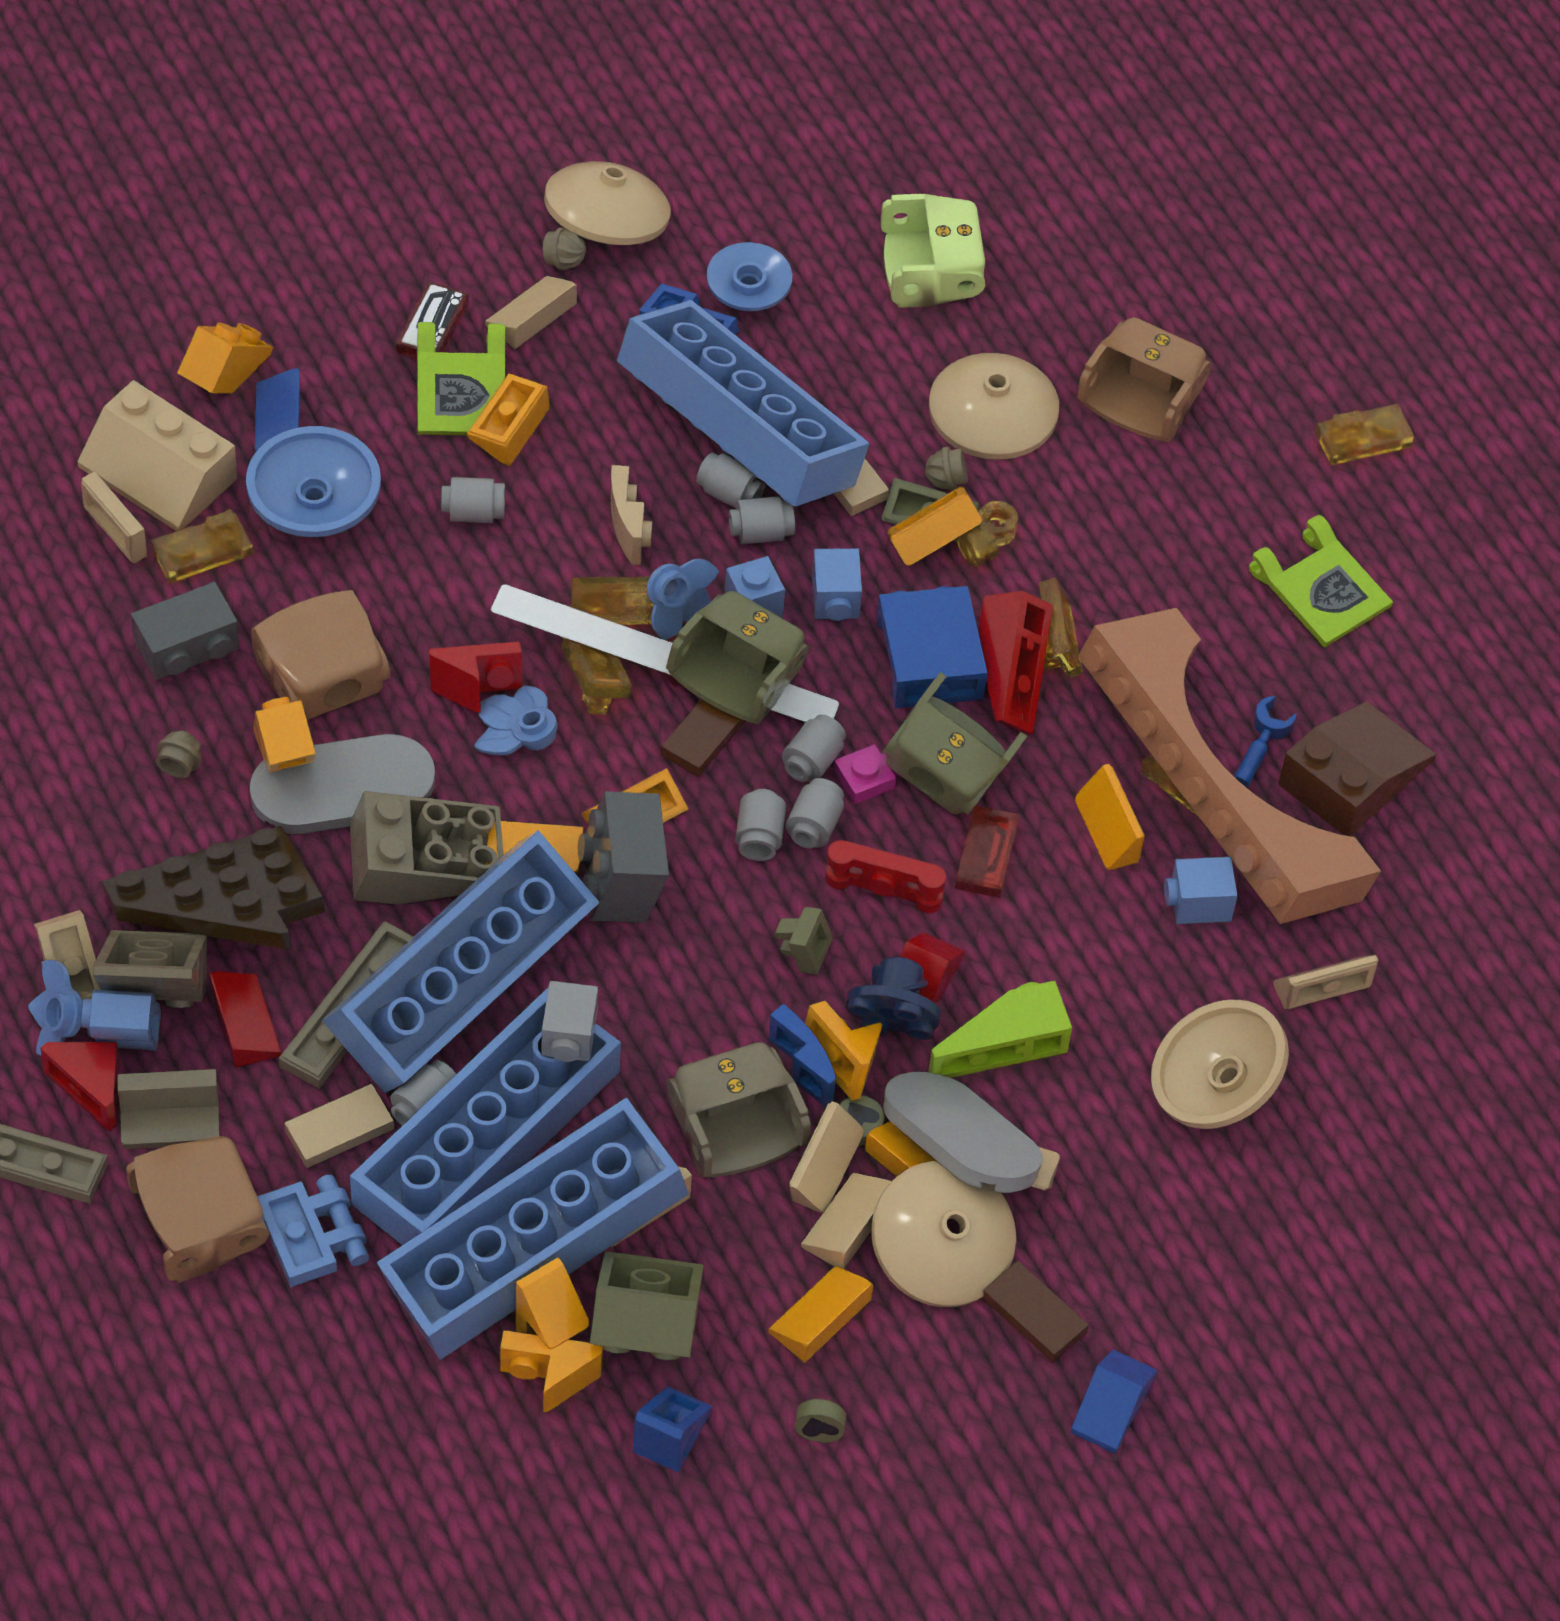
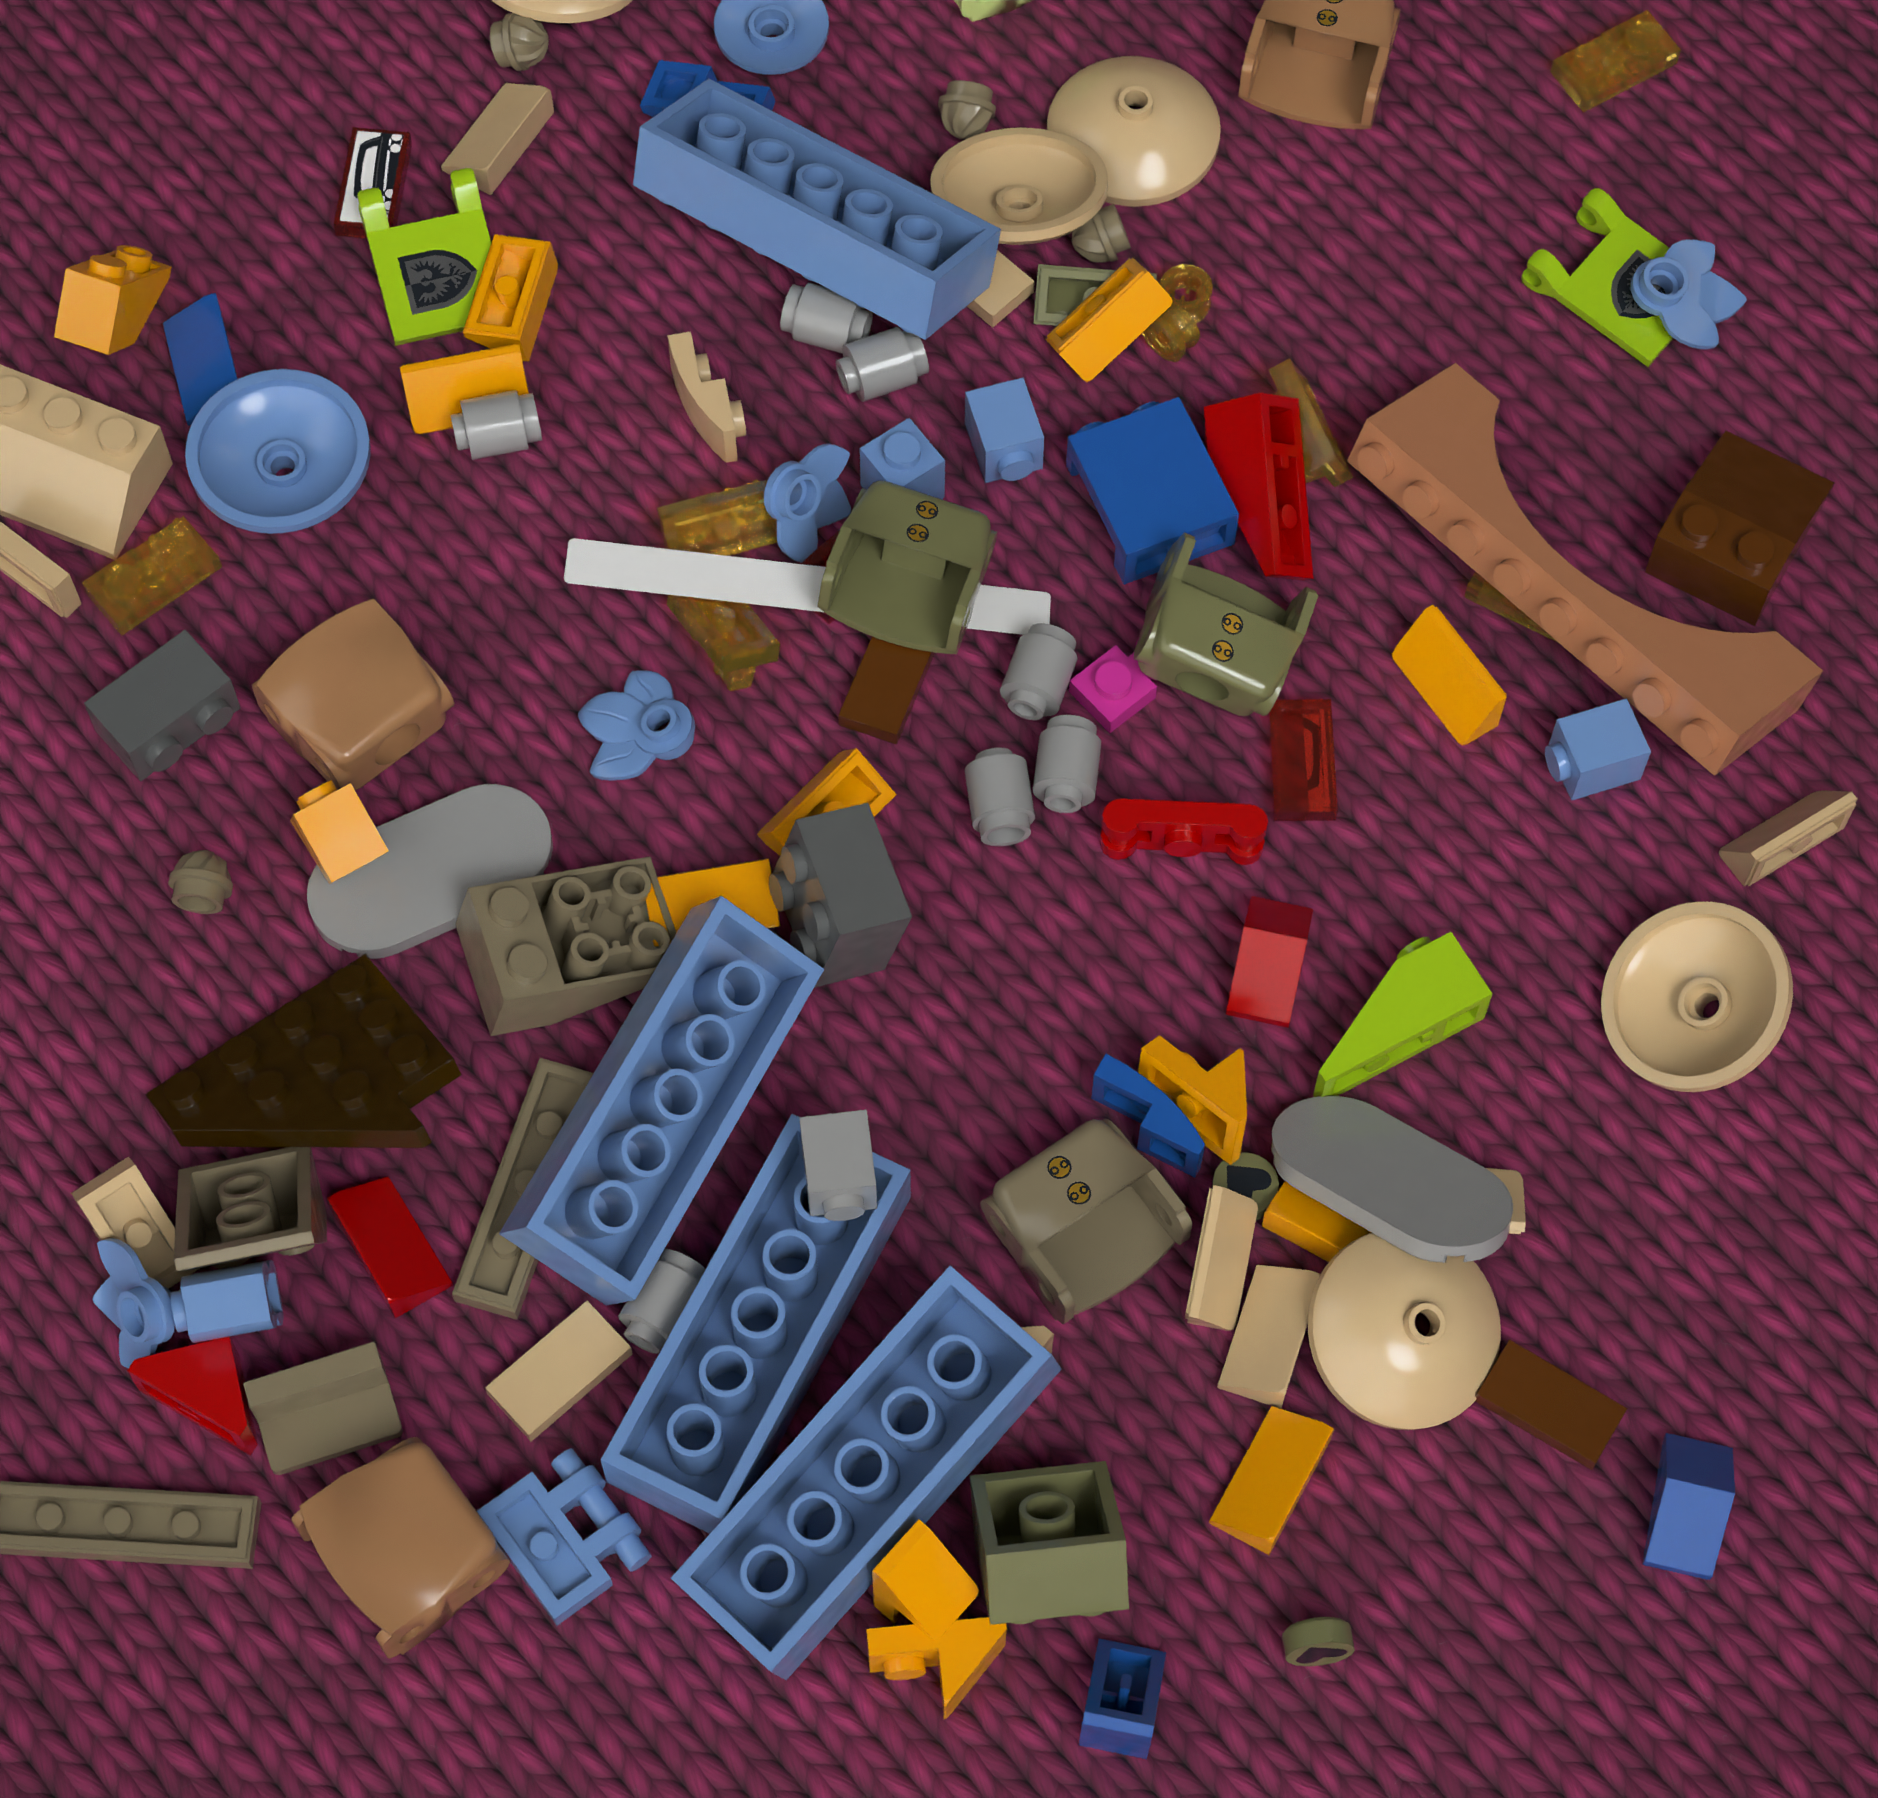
camera: 10 degrees left, 10 degrees up
(438, 463) = (438, 385): none -> light orange slope
(468, 670) = (553, 672): red slope -> none
(805, 939) = (1104, 947): olive tile -> none
(875, 363) = (966, 108): none -> dark tan plate
(895, 1000) = (1251, 1009): dark blue plate -> none
(899, 419) = (1023, 182): none -> tan dish
(1268, 728) = (1612, 498): blue piece -> none
(1370, 601) = (1693, 294): none -> medium blue plate

